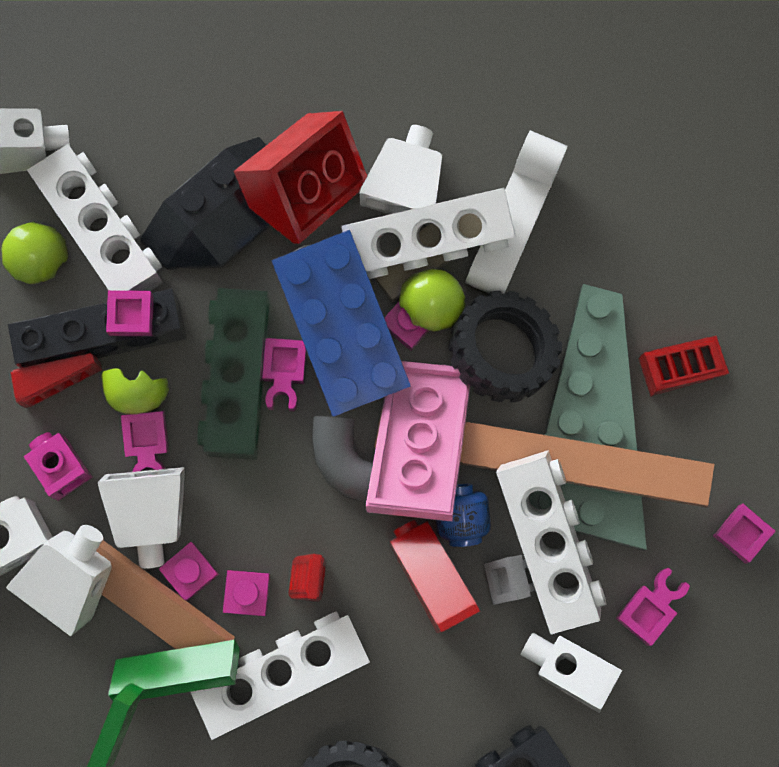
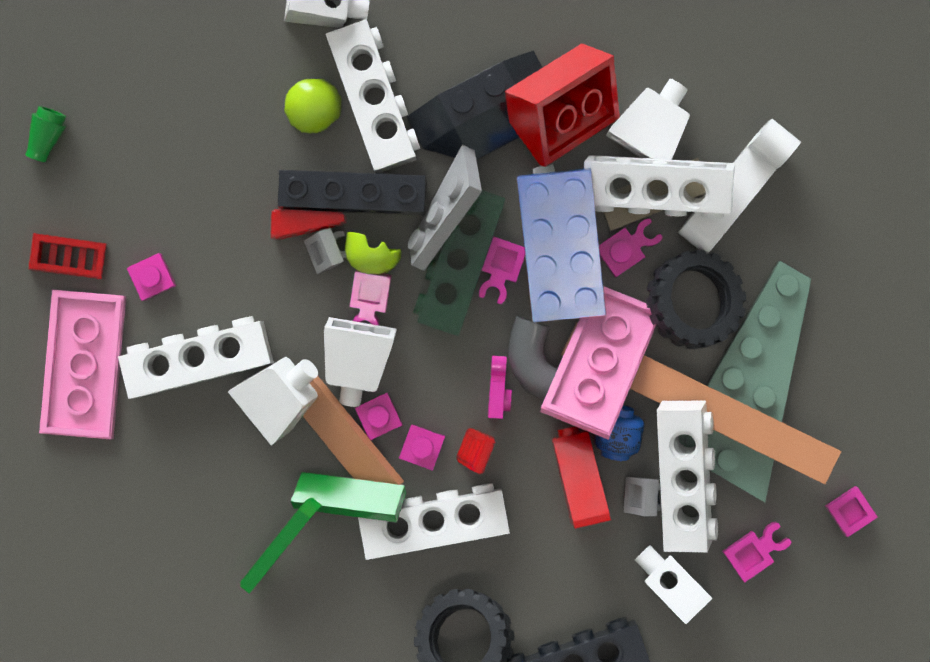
camera: 25 degrees right, 10 degrees up
(69, 472) = (297, 310): dark pink brick -> none
(82, 402) = (324, 250): none -> light grey tile
(129, 313) = (386, 191): dark pink plate -> none
(204, 320) = (447, 208): none -> light grey wing
(318, 513) = (498, 396): none -> dark pink plate
(432, 299) = (645, 241): lime hair -> none
(653, 374) = (816, 354): red slope -> none

